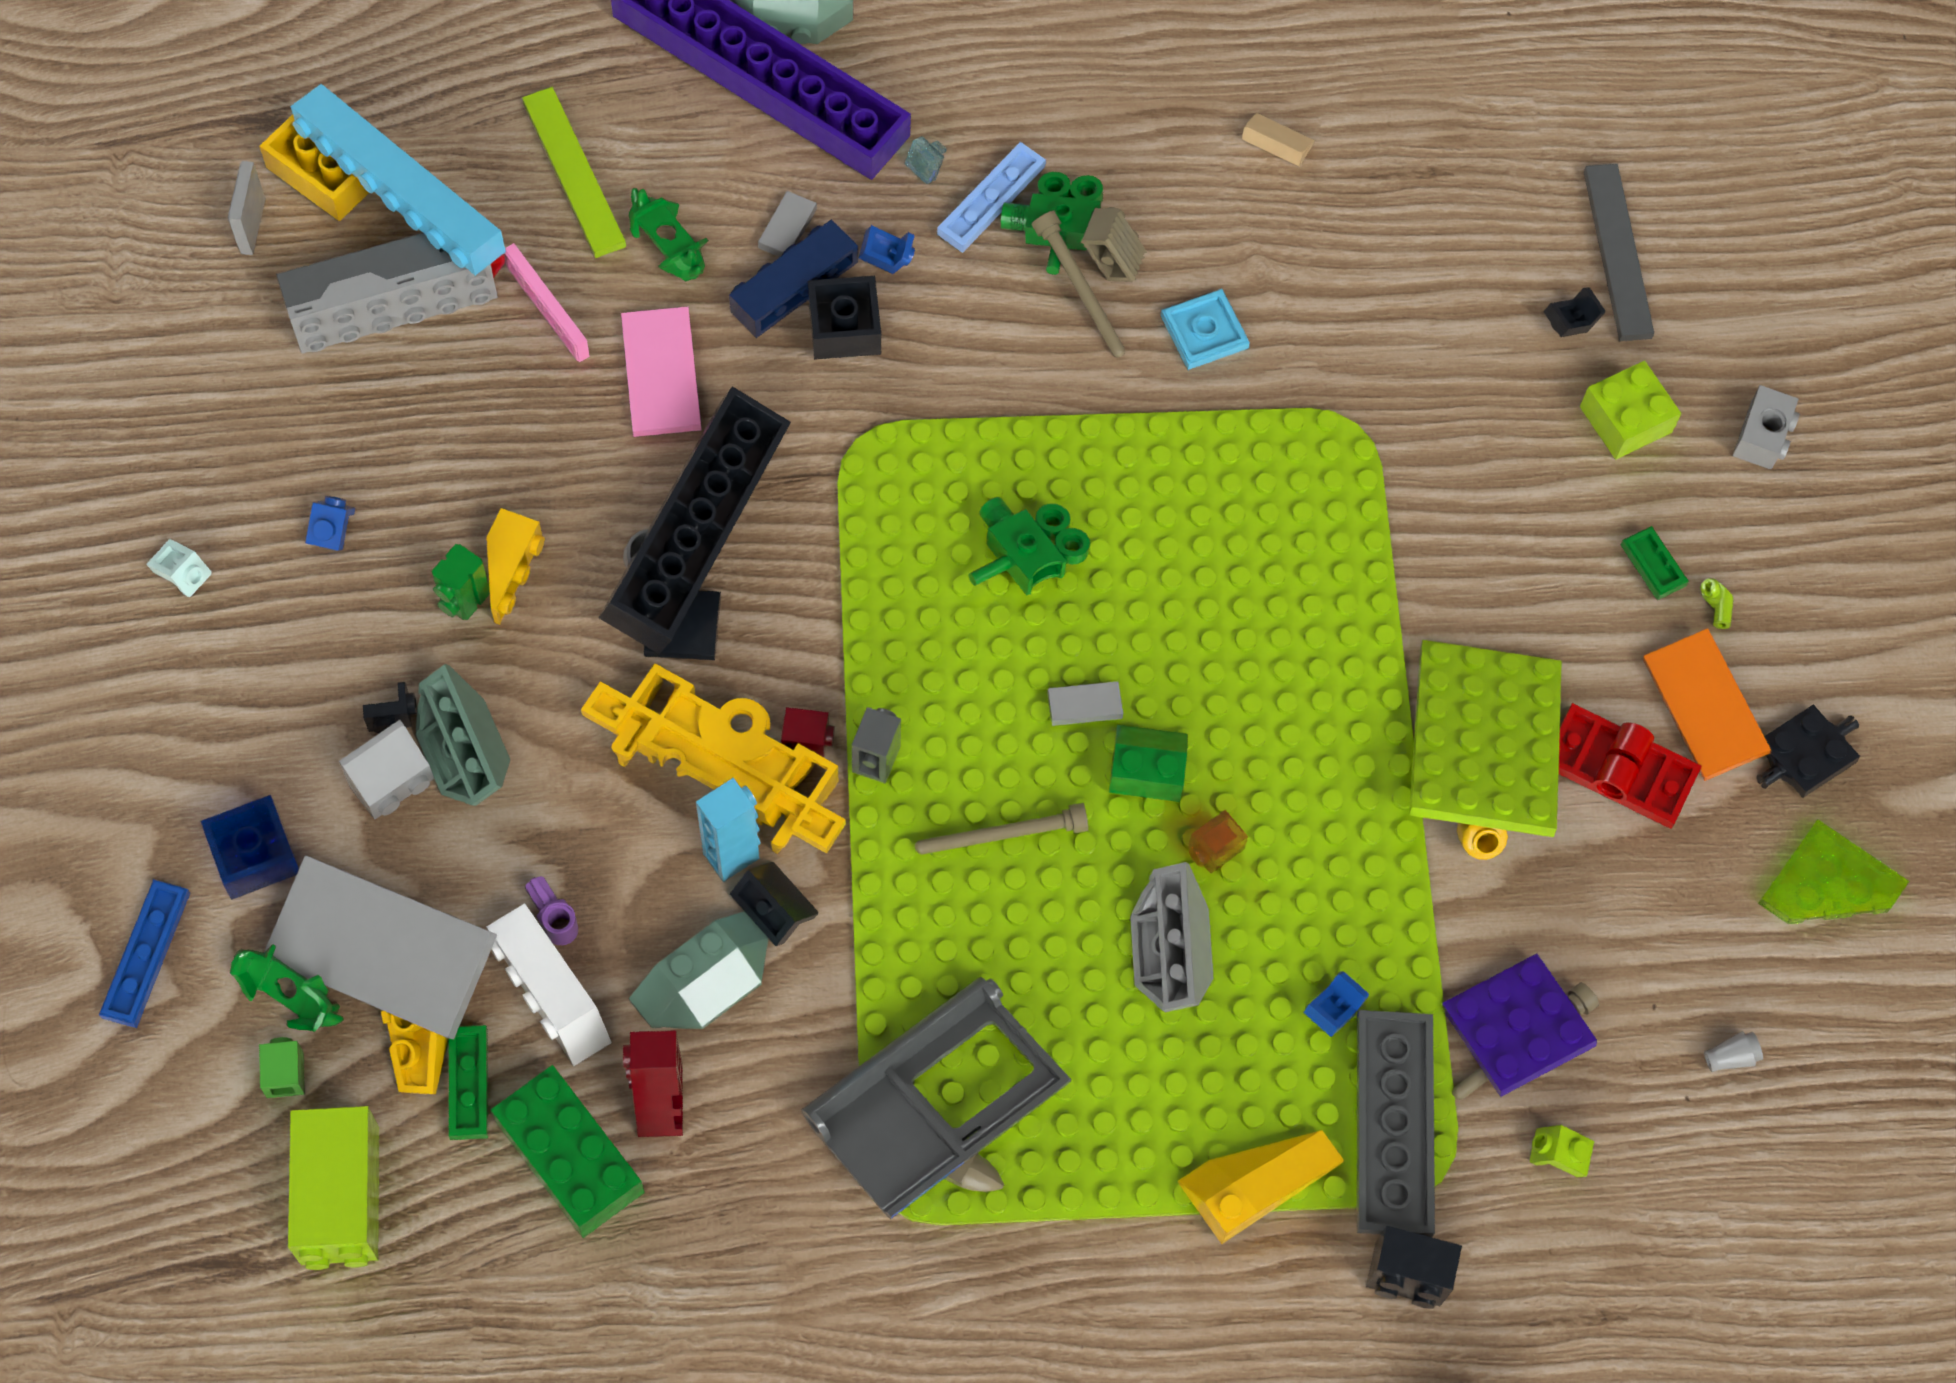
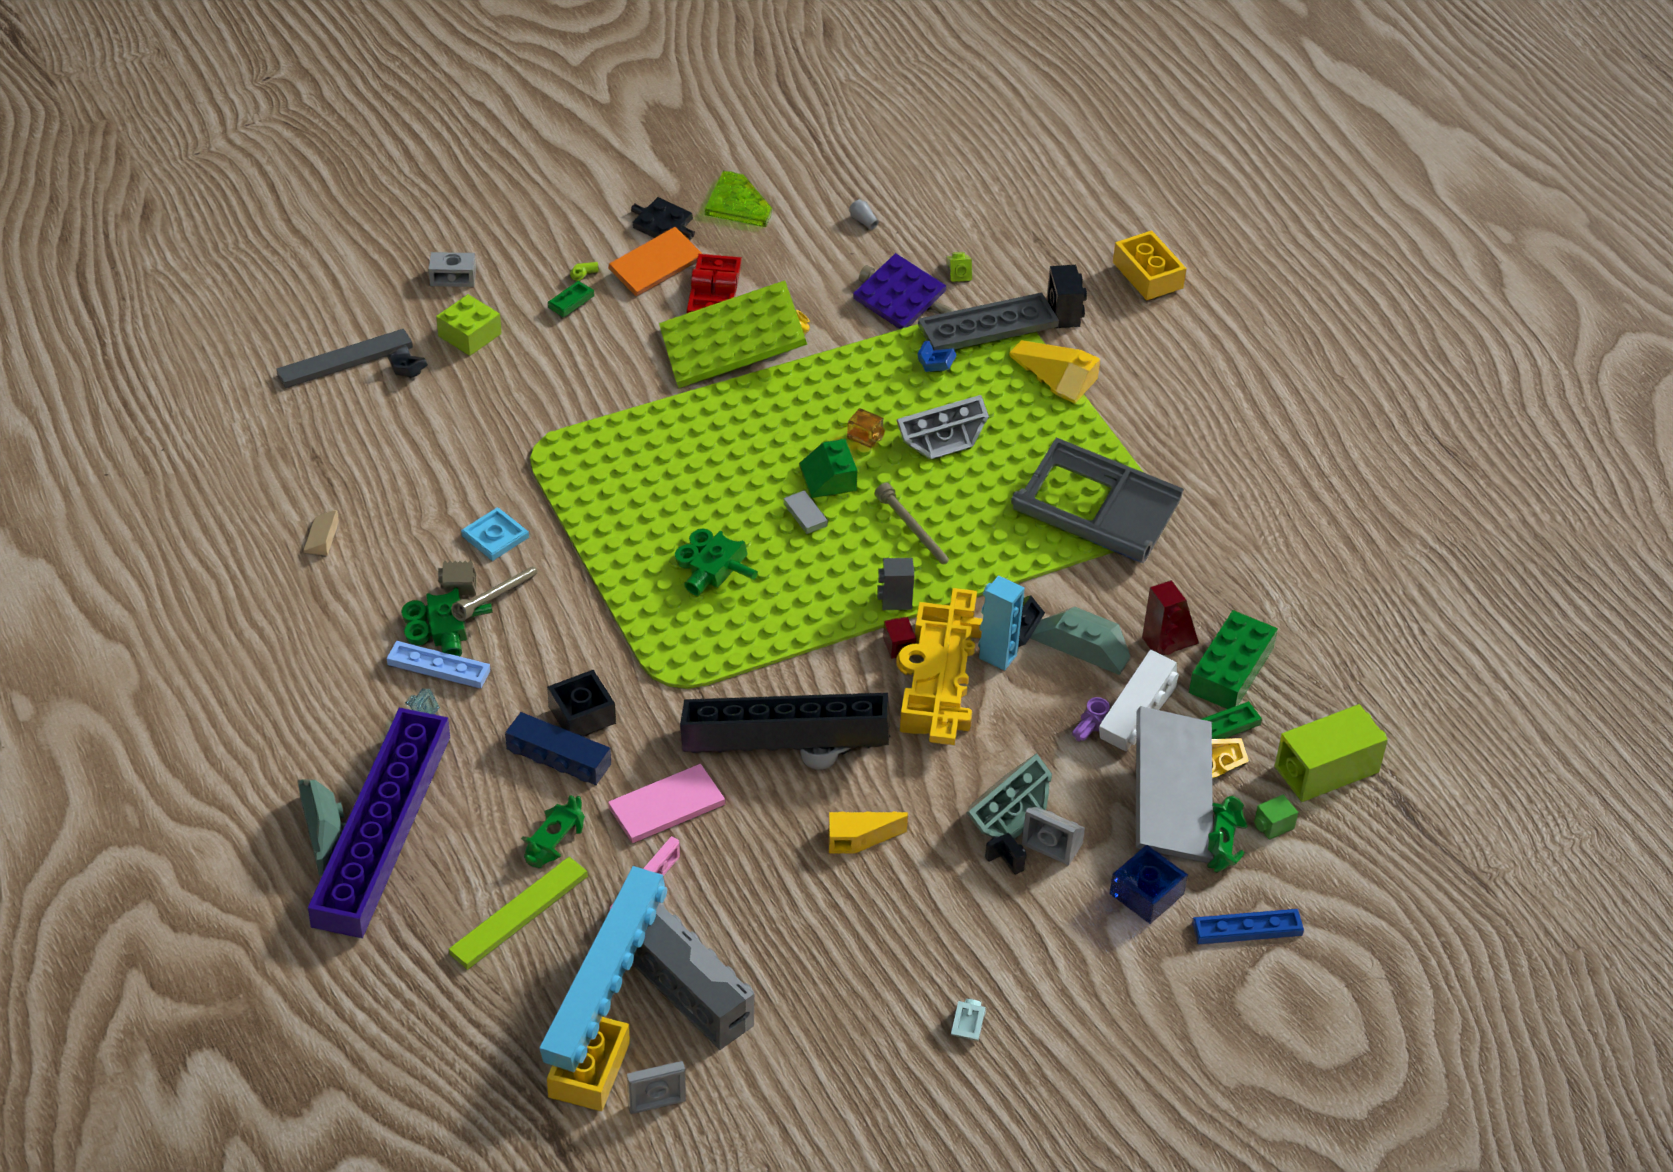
camera: 110 degrees left, 20 degrees down
(329, 523) = (885, 942): blue bracket -> none
(460, 582) = (899, 838): green brick -> none
(787, 224) = (510, 771): light grey tile -> none
(886, 249) = (509, 702): blue bracket -> none

